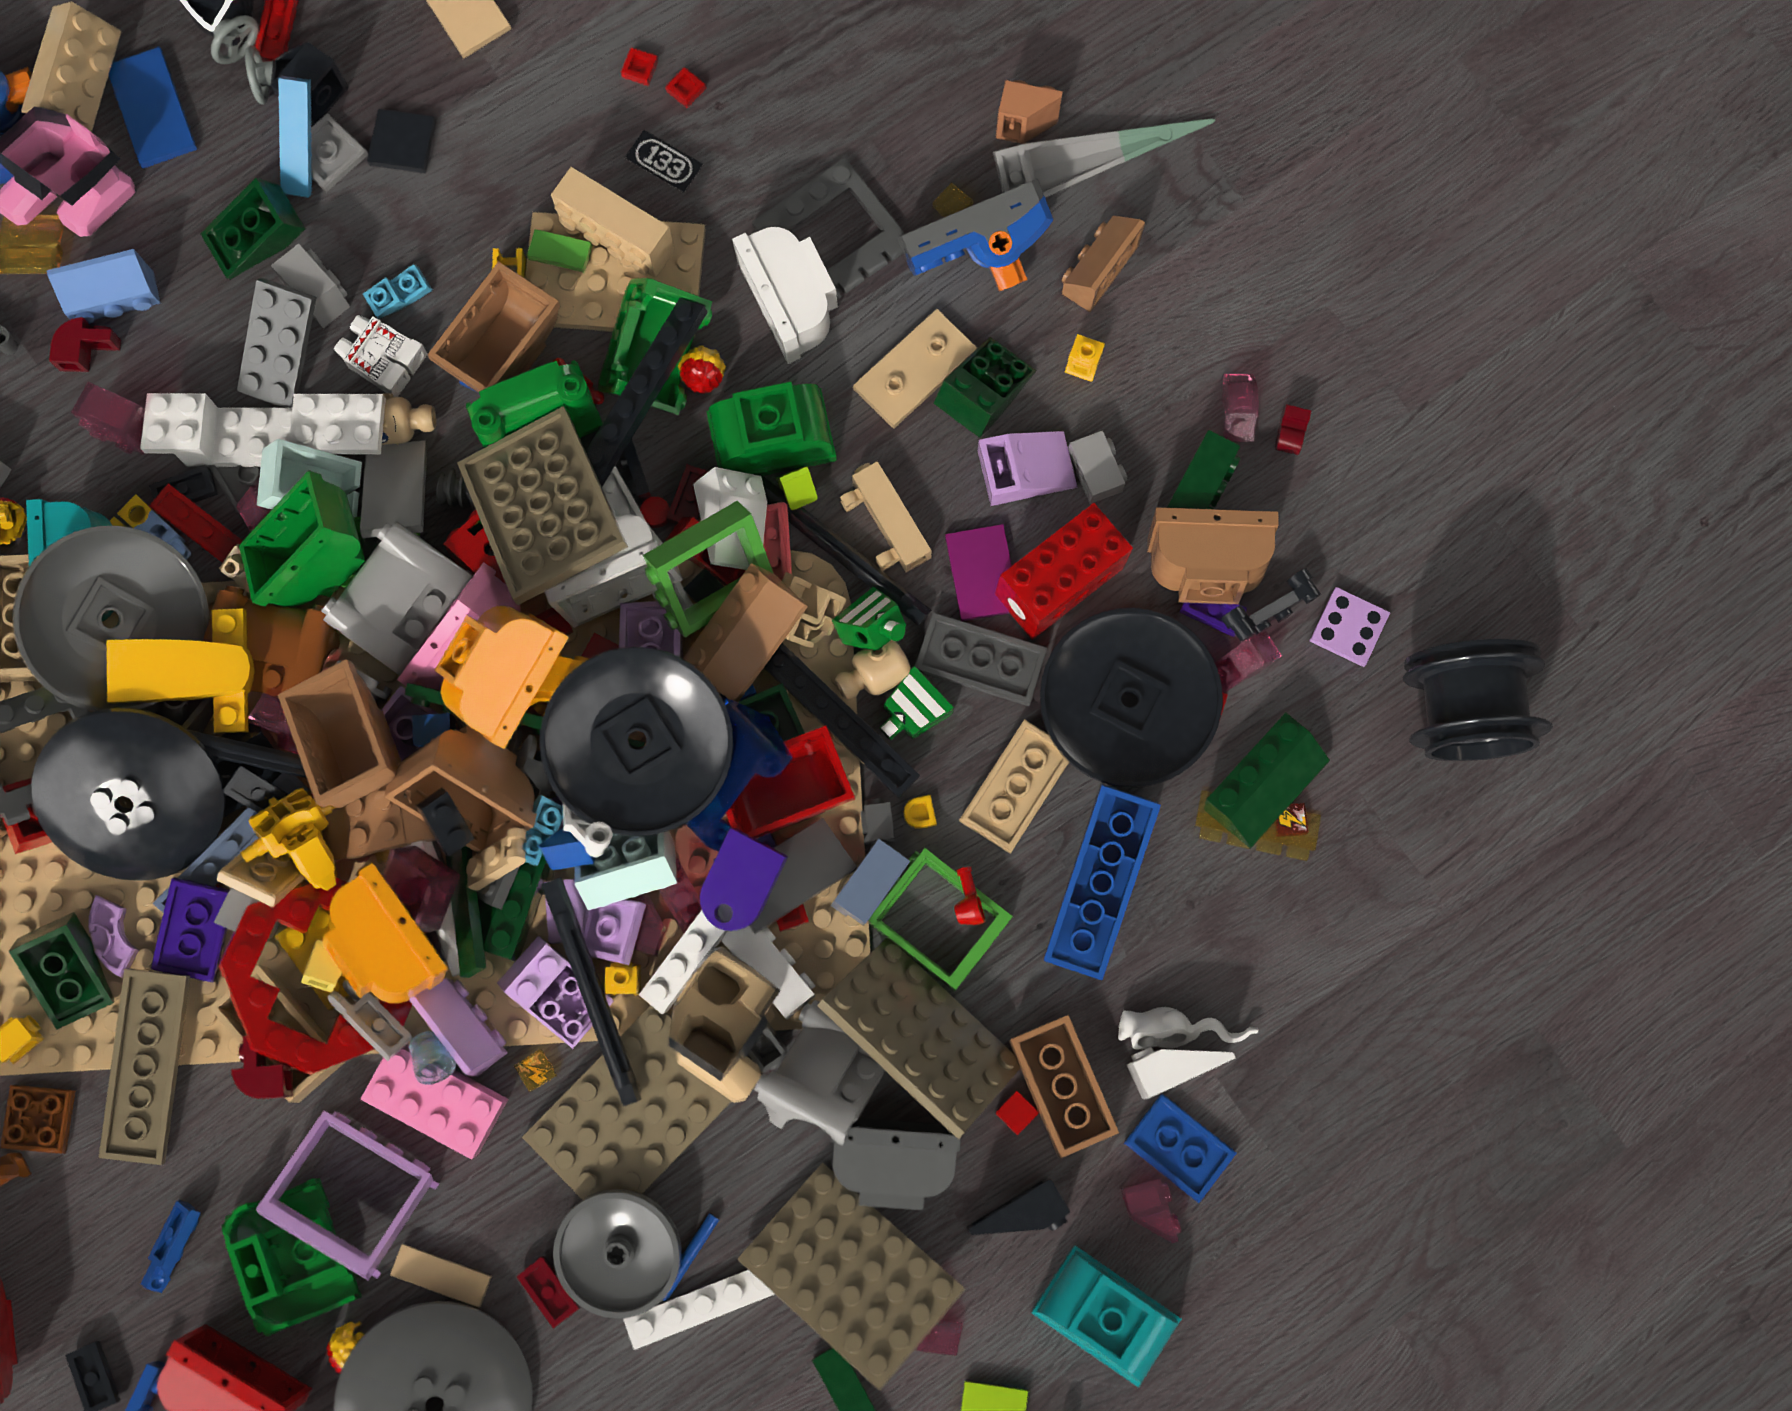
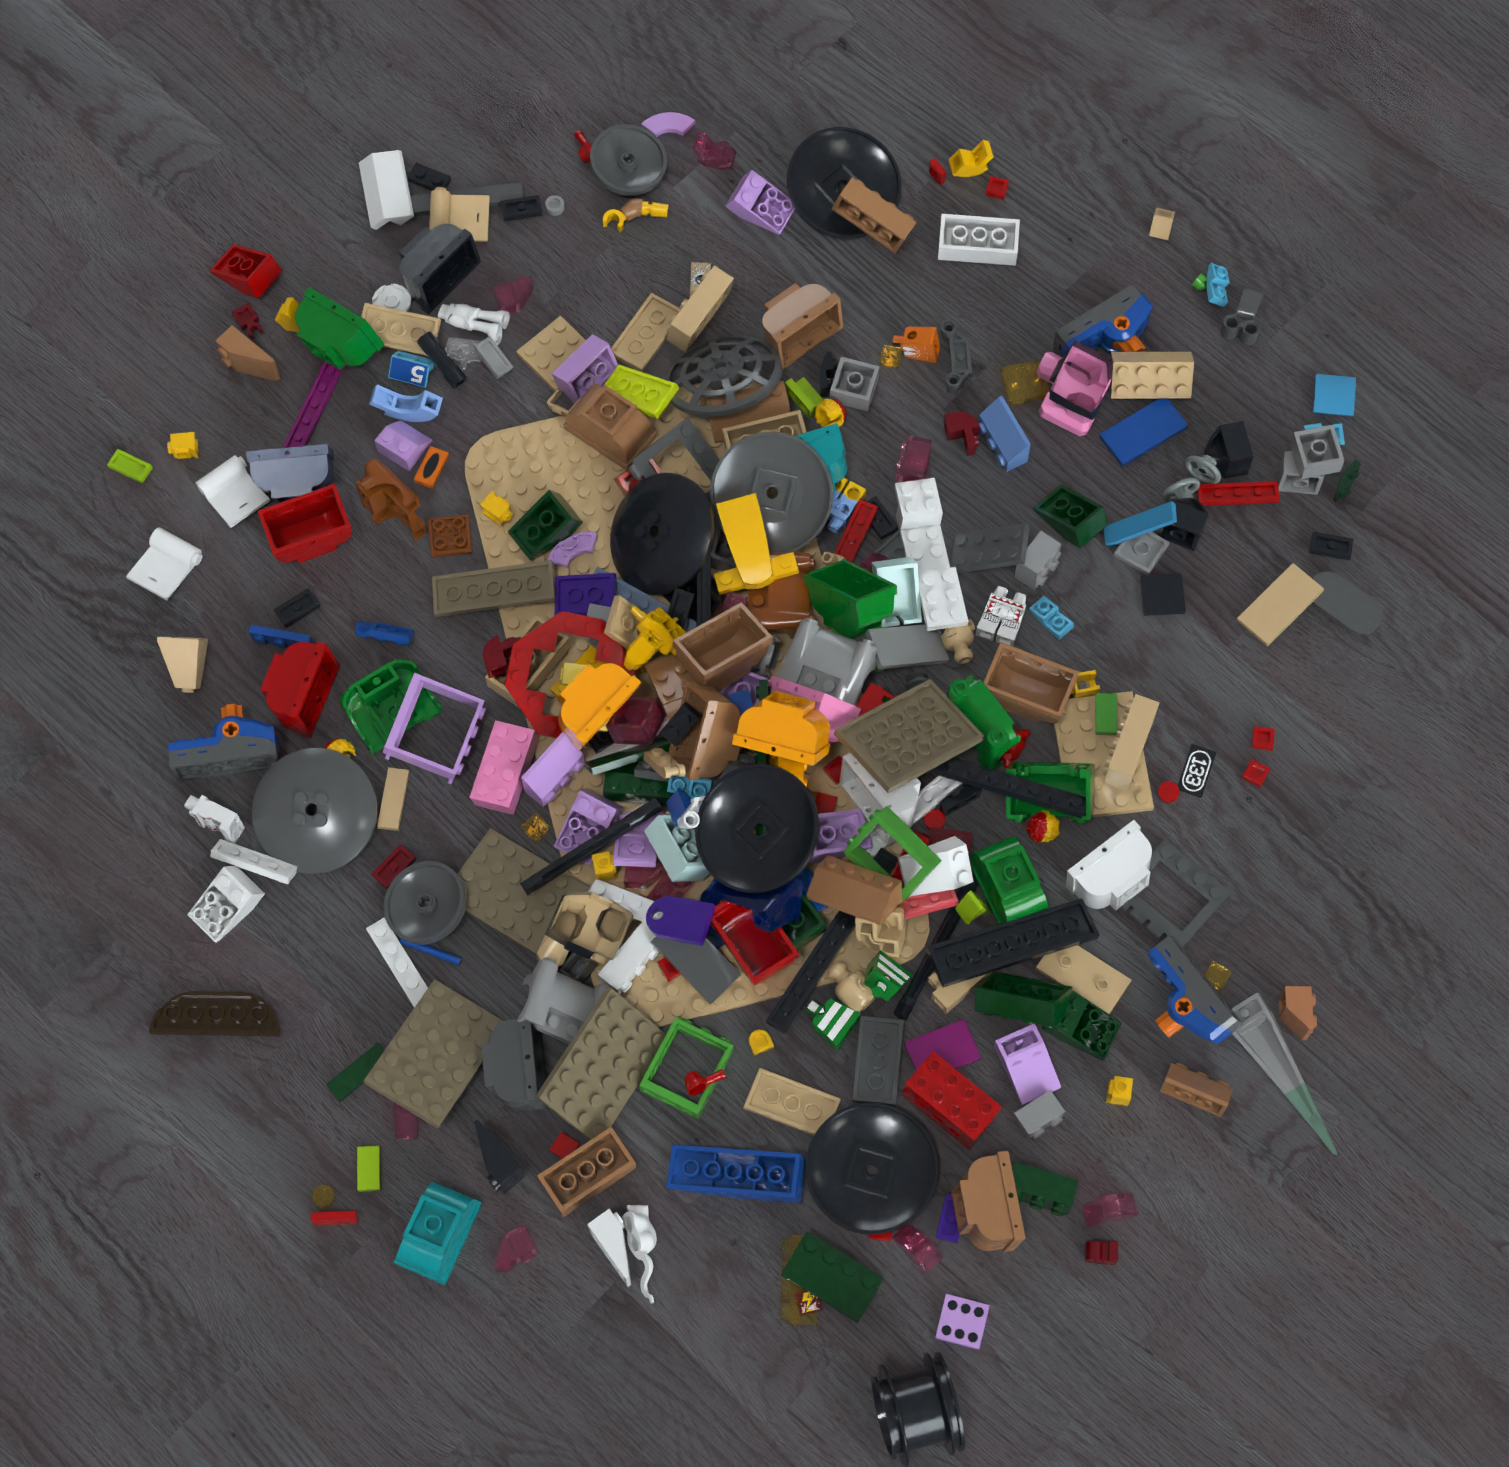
camera: 80 degrees right, 10 degrees down
(372, 1021) = (543, 715): light grey hinge -> none
(430, 1059) = (526, 754): clear light blue piece -> none
(686, 201) = (1168, 792): none -> red tile
(860, 445) = (1012, 942): none -> black plate
(870, 882) = (701, 1012): sand blue piece -> none
(877, 822) = (746, 1012): dark grey window -> none
(941, 447) = (1022, 999): none -> dark green slope
(1180, 1148) = (560, 1264): blue tile -> none
(1246, 626) = (961, 1265): black plate -> none

